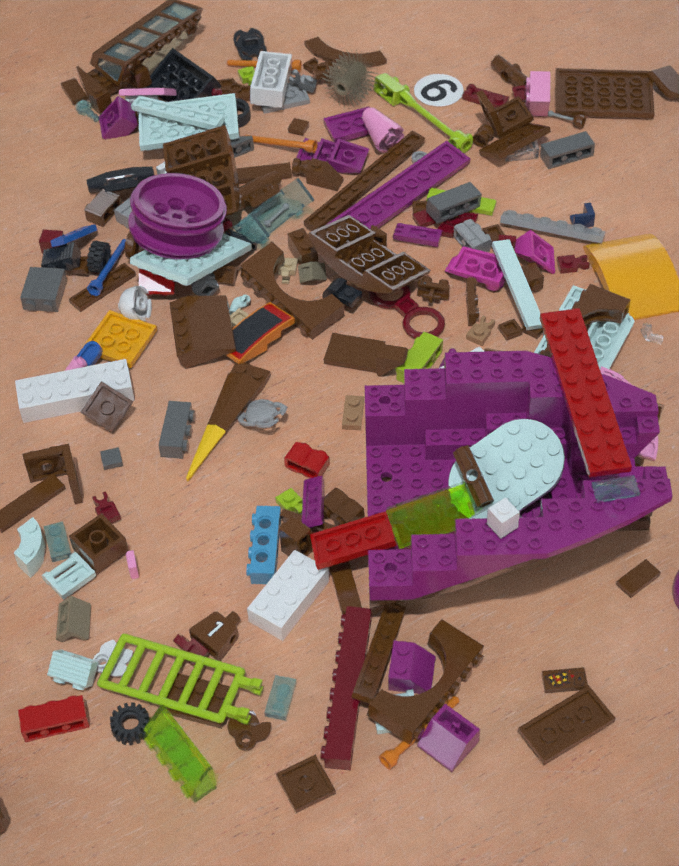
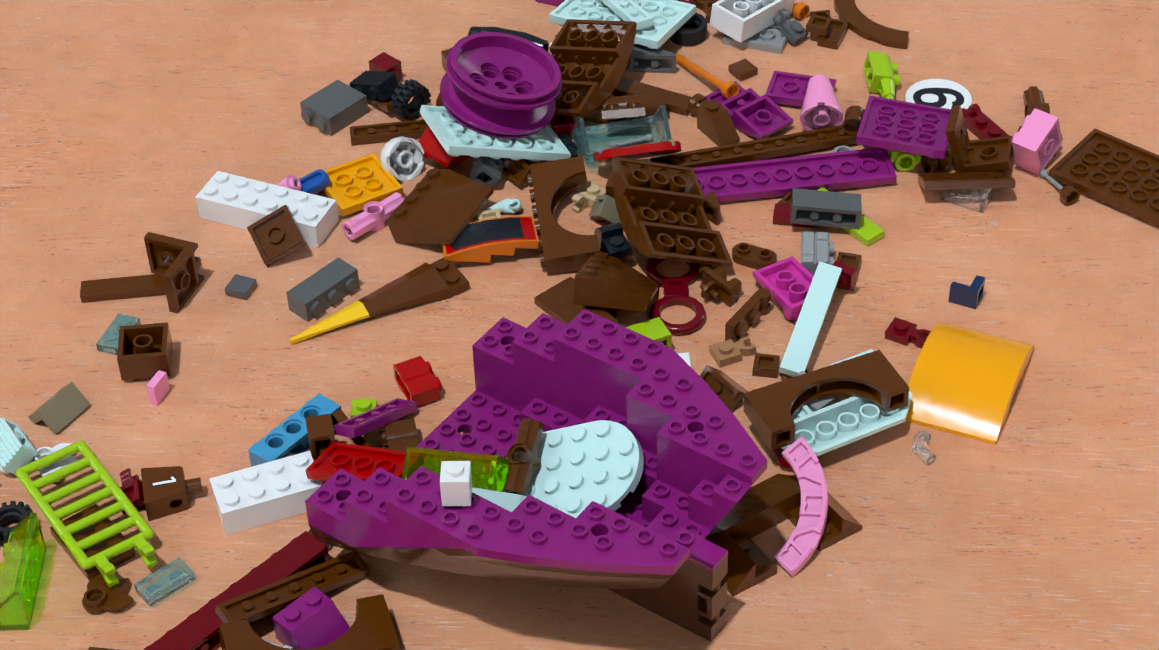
camera: 35 degrees right, 10 degrees down
(31, 549) = (86, 324): light aqua brick -> none
(72, 579) = (94, 369): light aqua plate -> none
(73, 235) = (406, 69): blue tile -> none
(96, 286) = (381, 125): blue piece -> none
(107, 508) = (187, 330): dark red plate -> none
(156, 357) = (373, 217): none -> bright pink piece
(262, 413) = (415, 314): light grey shield -> none
(297, 221) = (638, 151): none -> red tile
(350, 78) = (834, 40): dark tan piece -> none
(376, 325) = (612, 284): none -> reddish brown slope
(414, 131) = (852, 120): none -> reddish brown wheel
(417, 234) = (760, 226): magenta hinge -> none
(434, 257) = (753, 256): none -> reddish brown plate
(448, 225) = (837, 236): dark red tile -> none
(452, 120) = (904, 127): none -> magenta plate
(533, 276) = (839, 323): reddish brown brick -> none
(537, 250) = (874, 300): dark pink slope -> none
(556, 227) = (926, 289): light grey plate -> none
(567, 150) = (1020, 216): dark grey brick -> none
(585, 393) = (682, 417): red plate -> none
(615, 488) = (613, 524): clear light blue slope -> none

